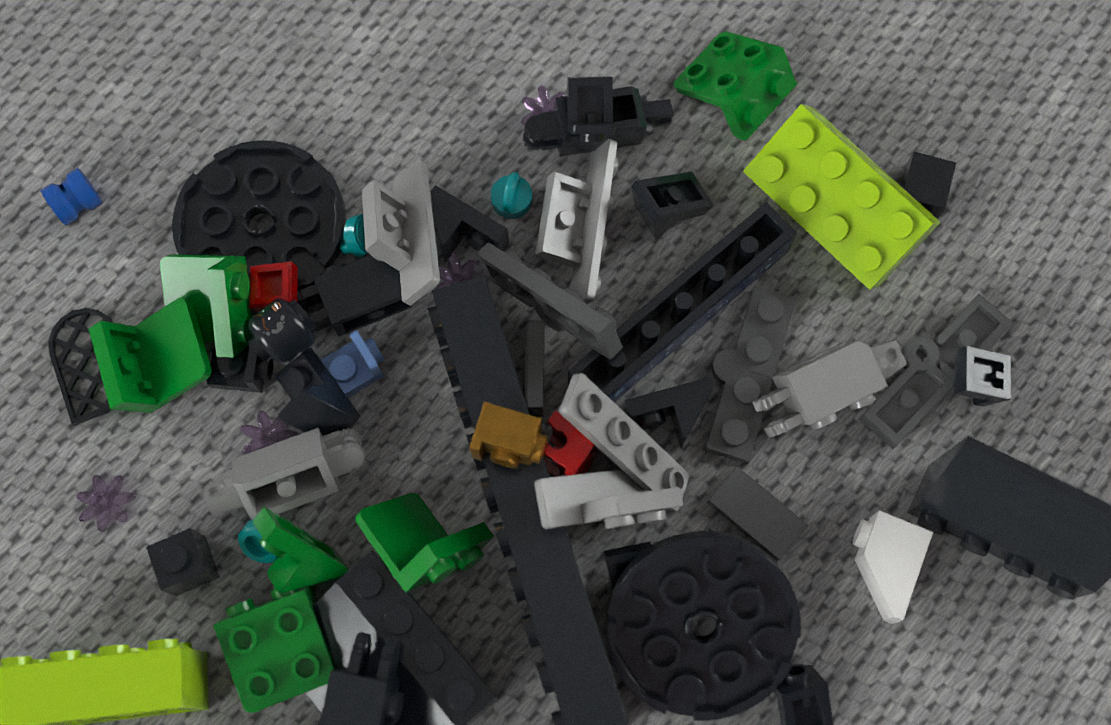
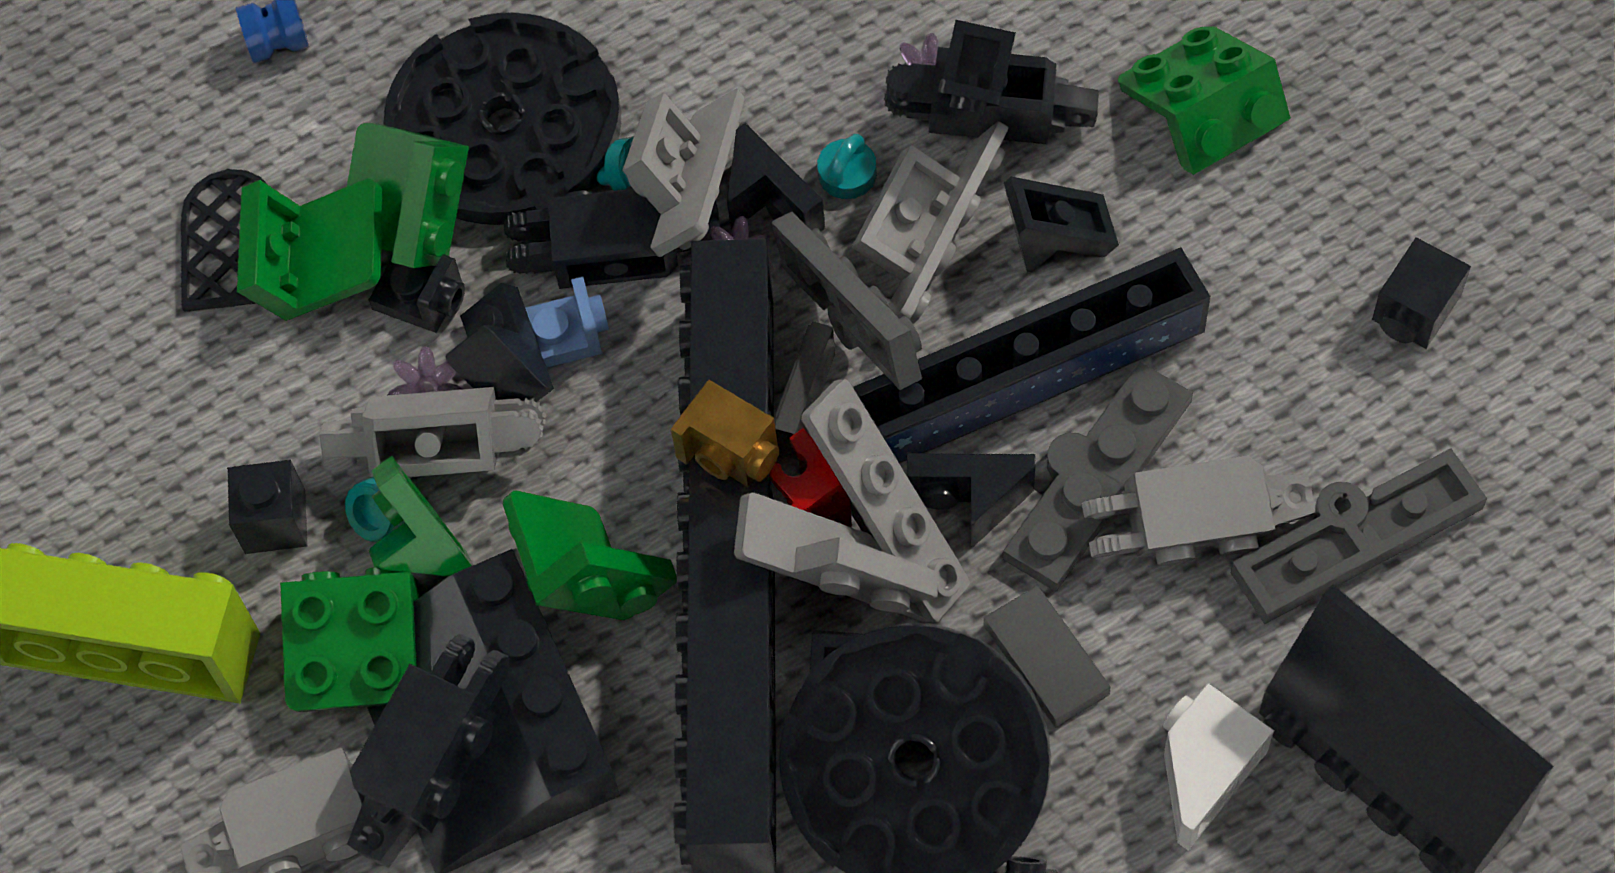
camera: 20 degrees right, 10 degrees down
(111, 505) = (192, 414): clear purple plant -> none
(272, 282) = (492, 197): red tile -> none
(281, 331) = (484, 250): black head -> none
(840, 196) = (1292, 271): lime brick -> none
(982, 375) = (1415, 551): bracket -> none

